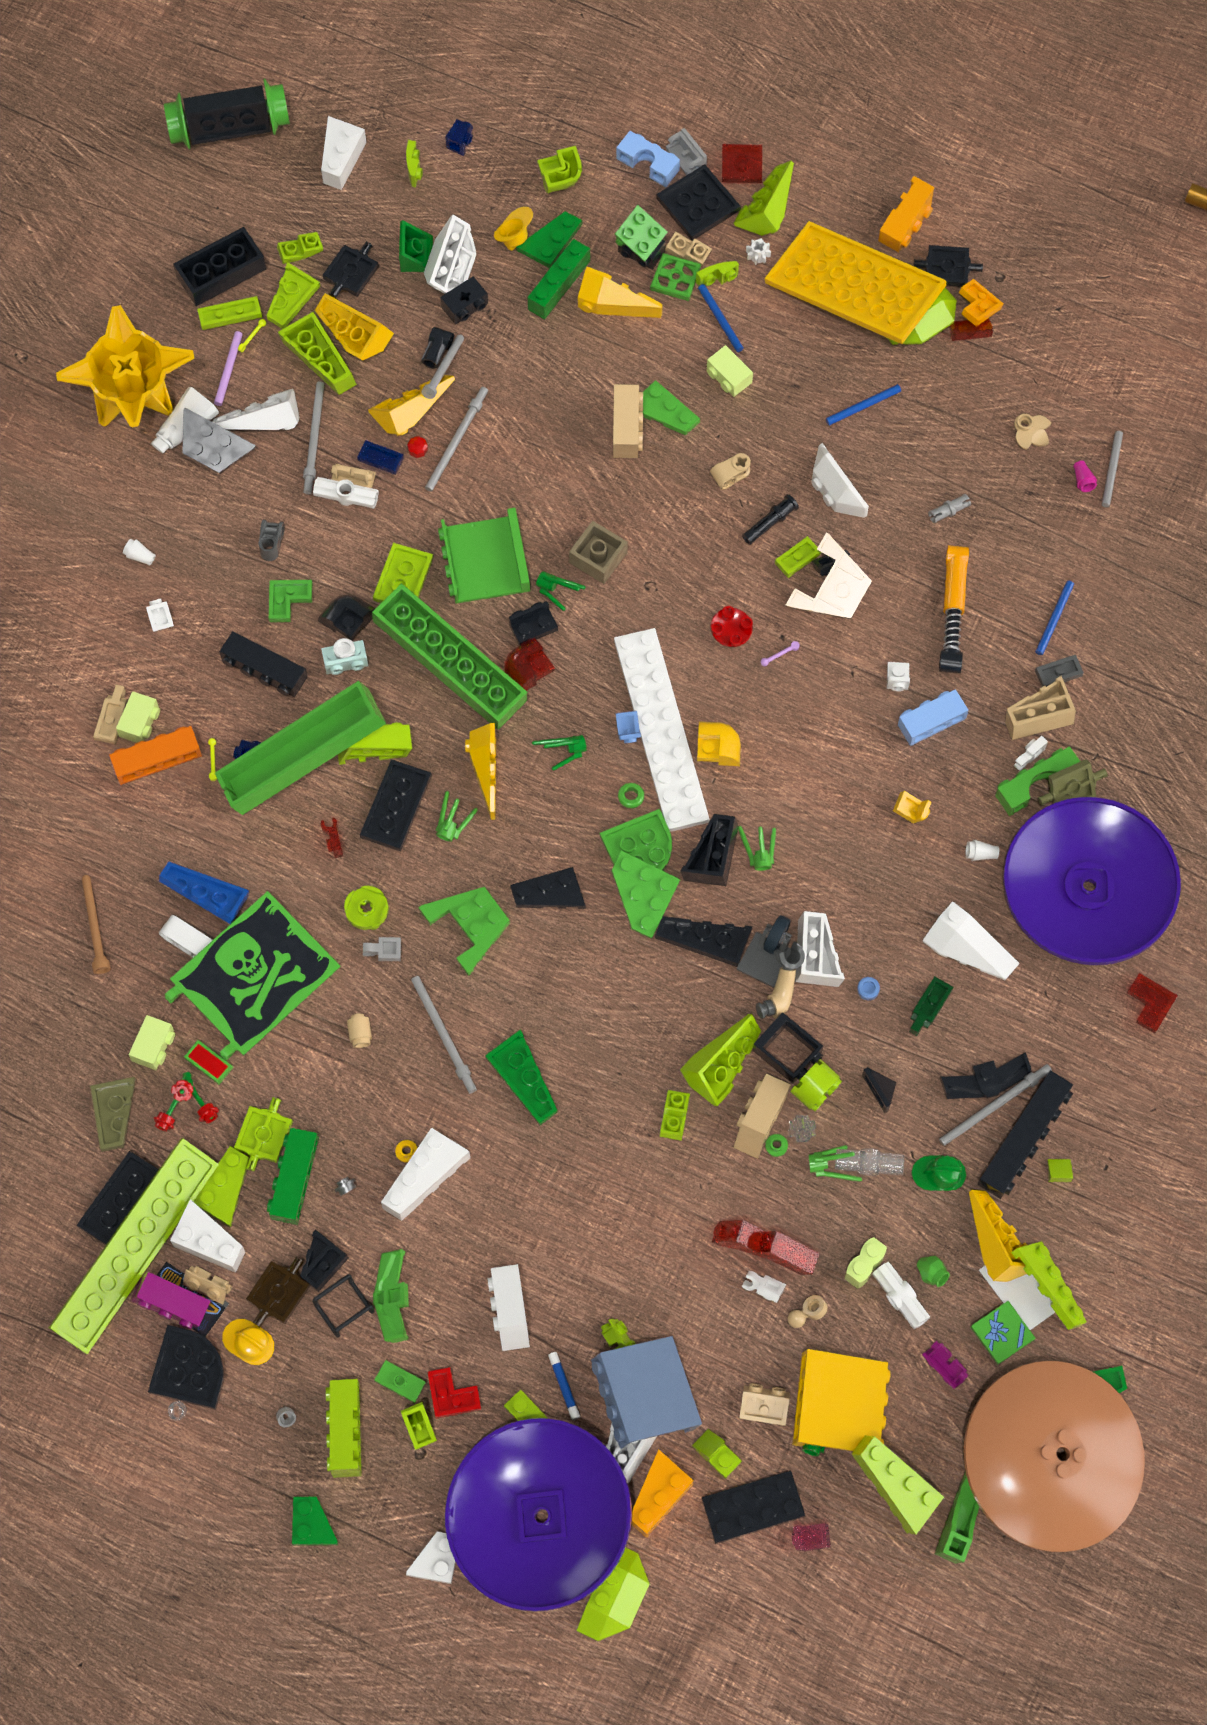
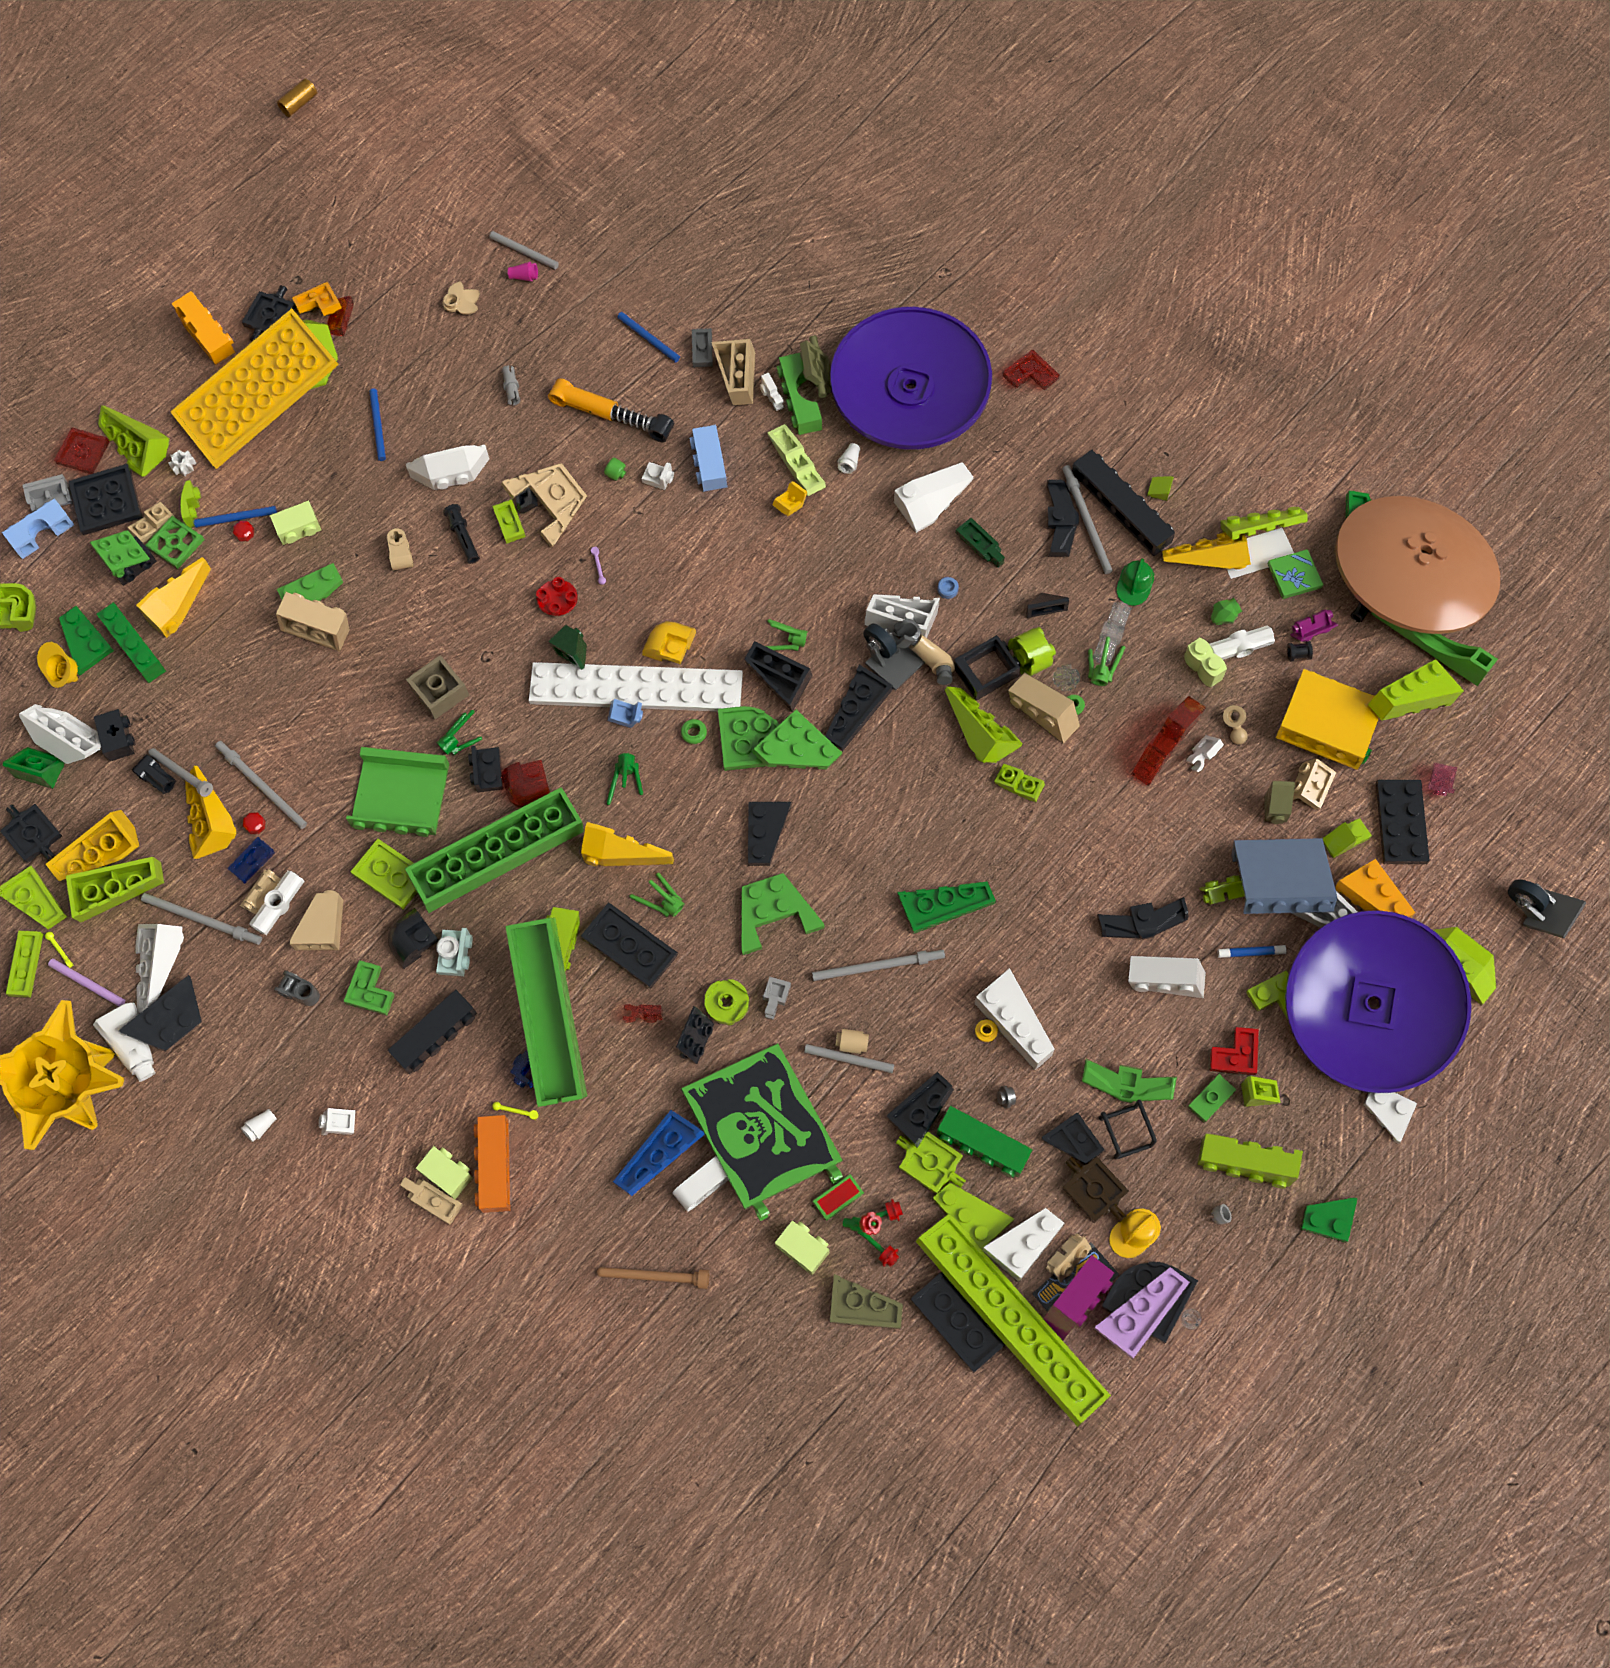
camera: 70 degrees left, 0 degrees up
(162, 1358) = (1139, 1316): none -> lavender wing
(310, 1110) = (921, 1108): none -> black wing
(322, 887) = (694, 1036): none -> black hinge
(337, 536) = (320, 924): none -> tan slope
(344, 1035) = (849, 1058): none -> light grey bar
(564, 1272) = (1144, 921): none -> black plate
(679, 655) = (570, 646): none -> dark green slope
(693, 1679) = (1545, 909): none -> dark grey plate
(707, 330) = (243, 531): none -> red tile
(728, 1372) = (1279, 801): none -> olive slope
(890, 634) = (615, 469): none -> bright green piece
(912, 1357) = (1299, 651): none -> black bush
(962, 800) = (796, 460): none -> yellowish green slope

